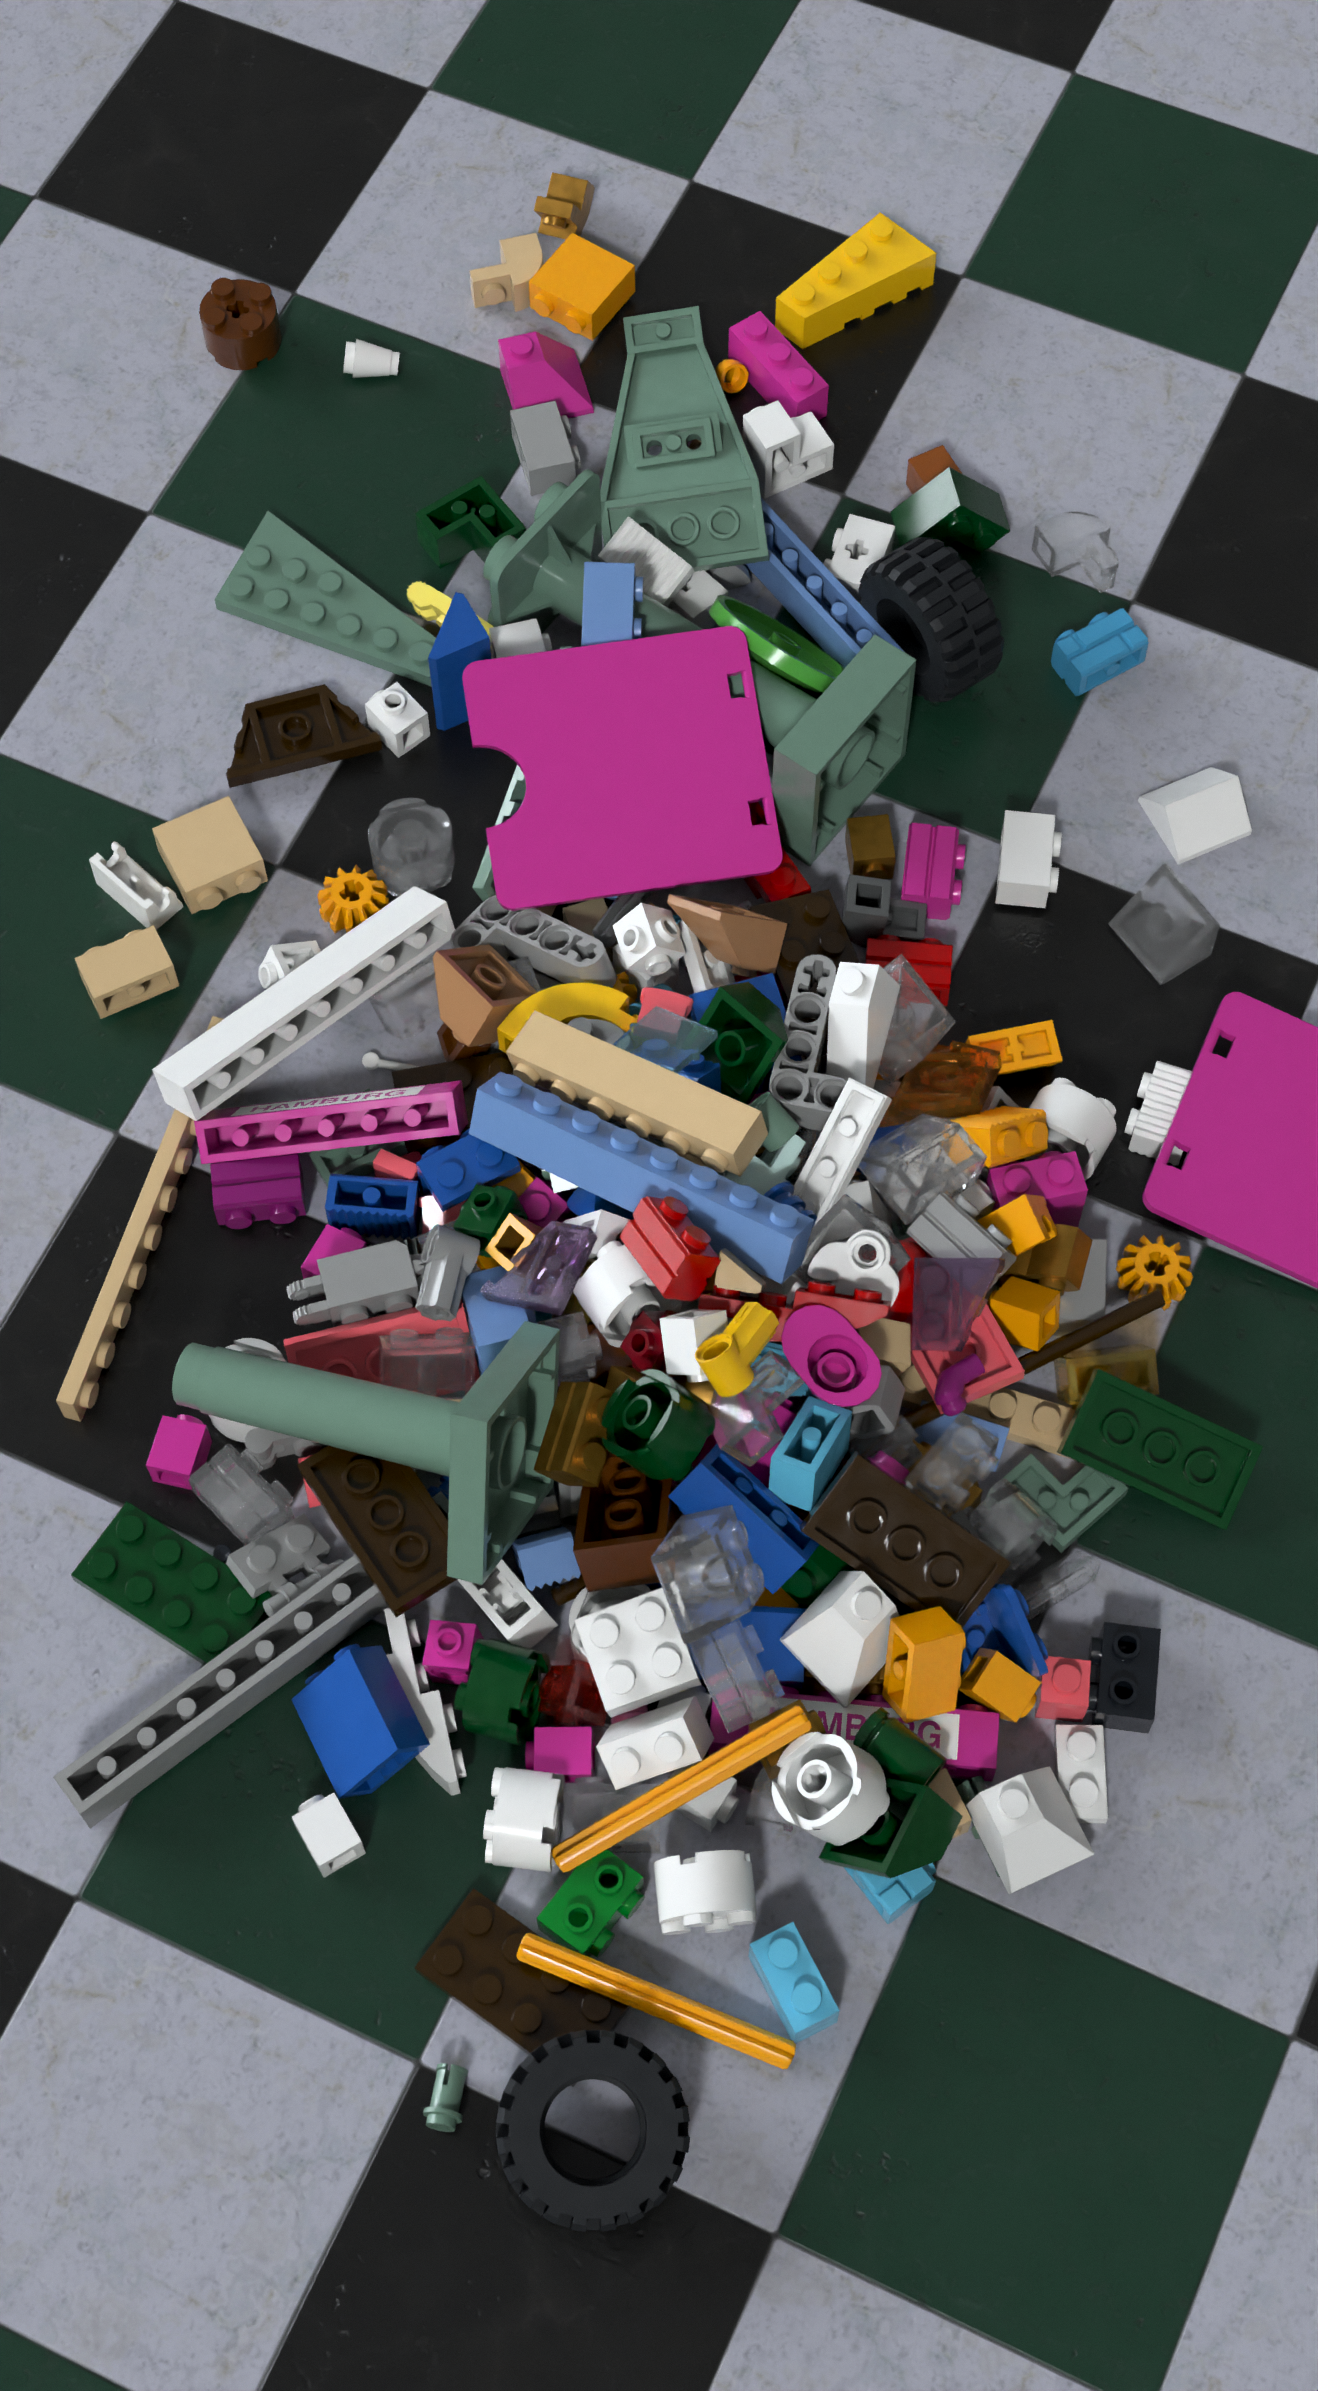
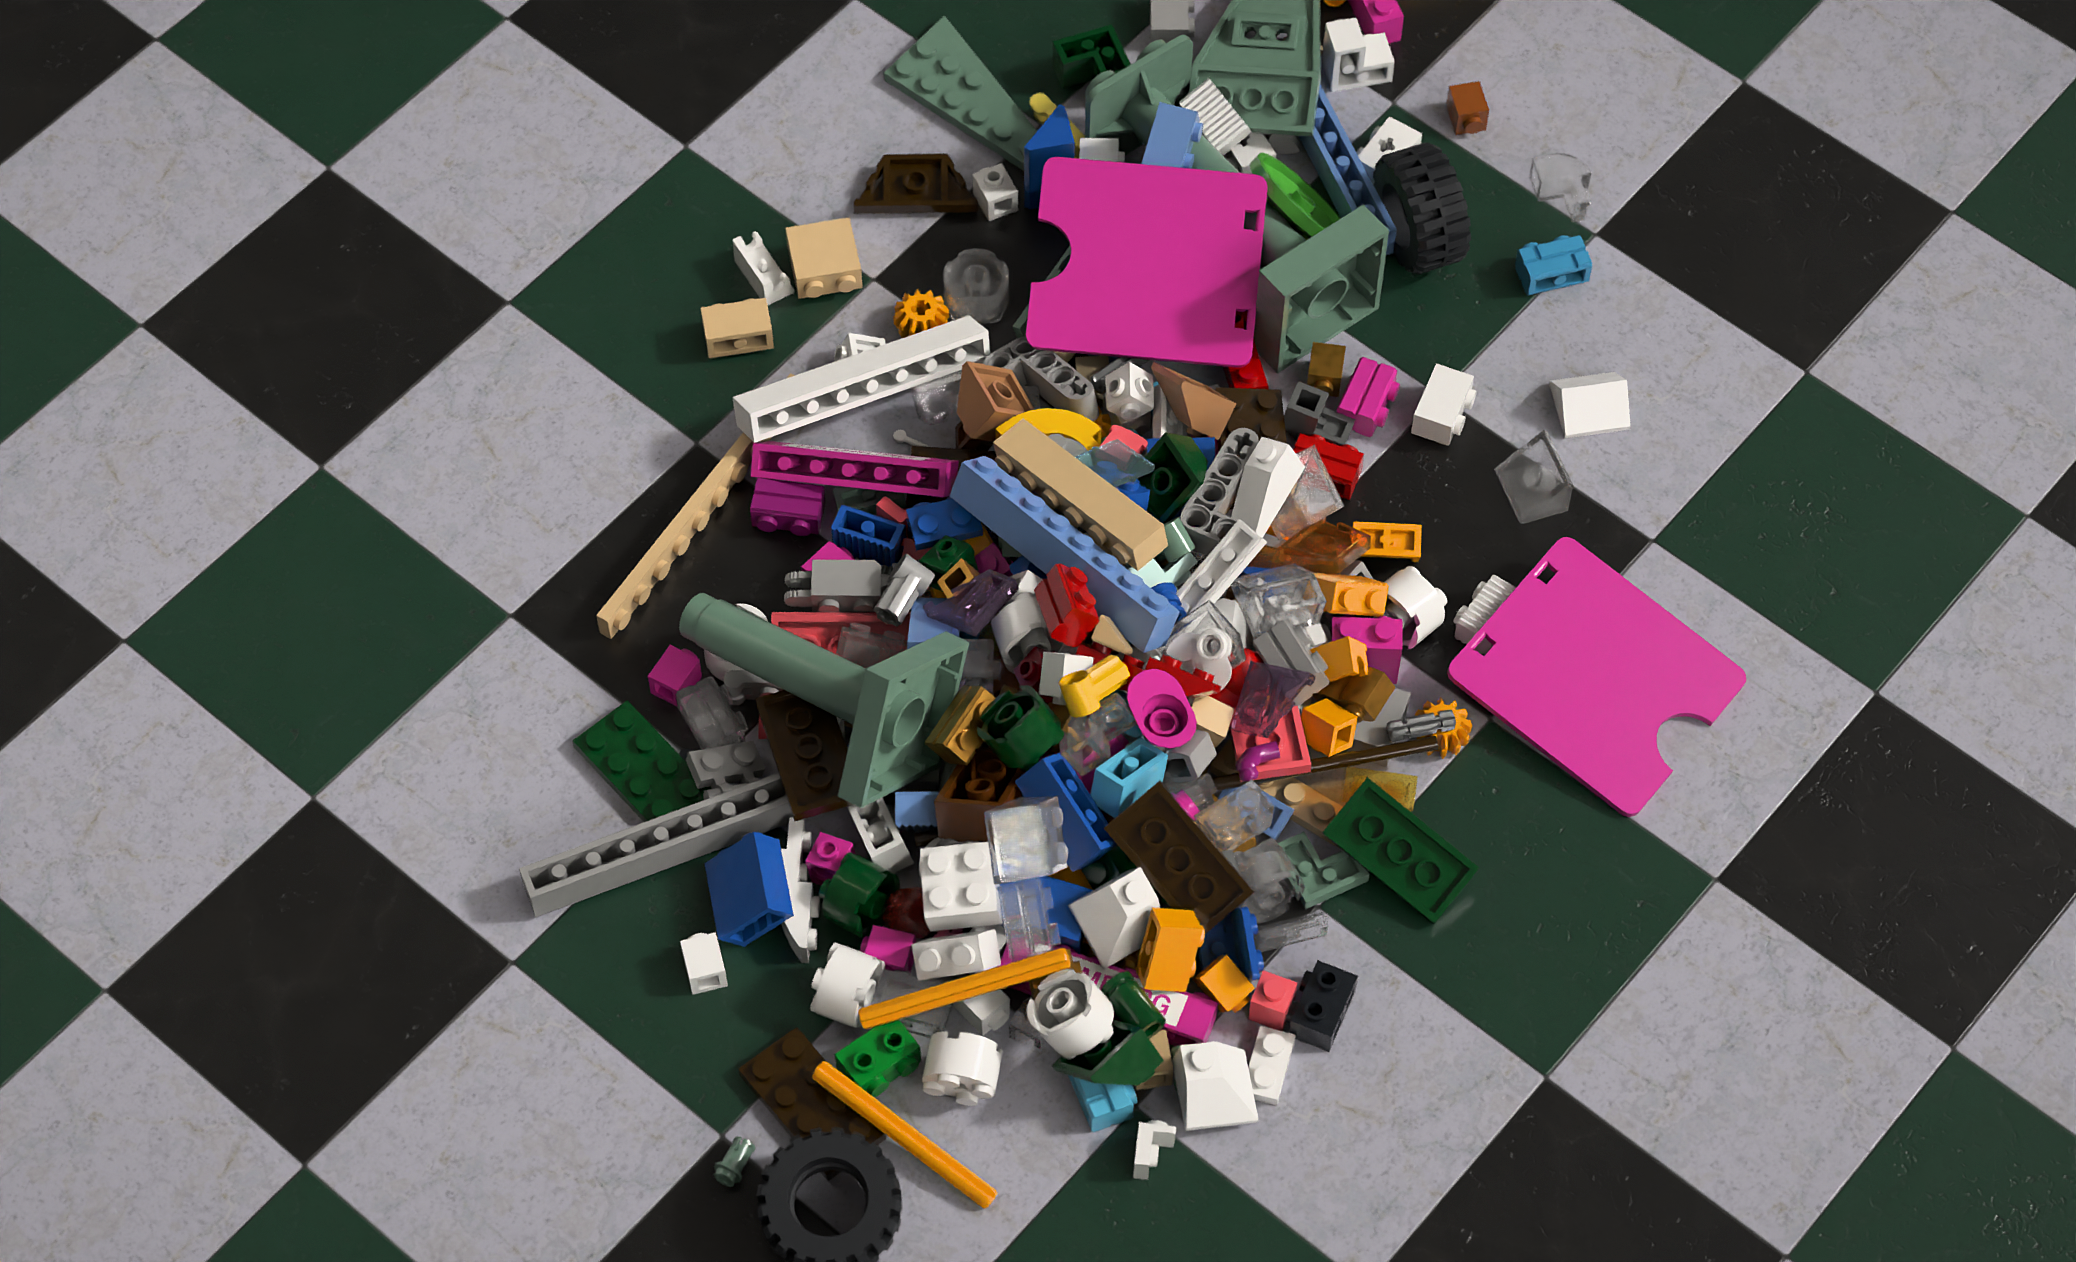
camera: 15 degrees right, 5 degrees down
(793, 1983) = (1007, 1149): medium azure brick -> none
(952, 511) = (1472, 132): dark green brick -> none
(967, 1937) = (1149, 1138): none -> white bracket
(1135, 1280) = (1421, 725): none -> dark grey axle

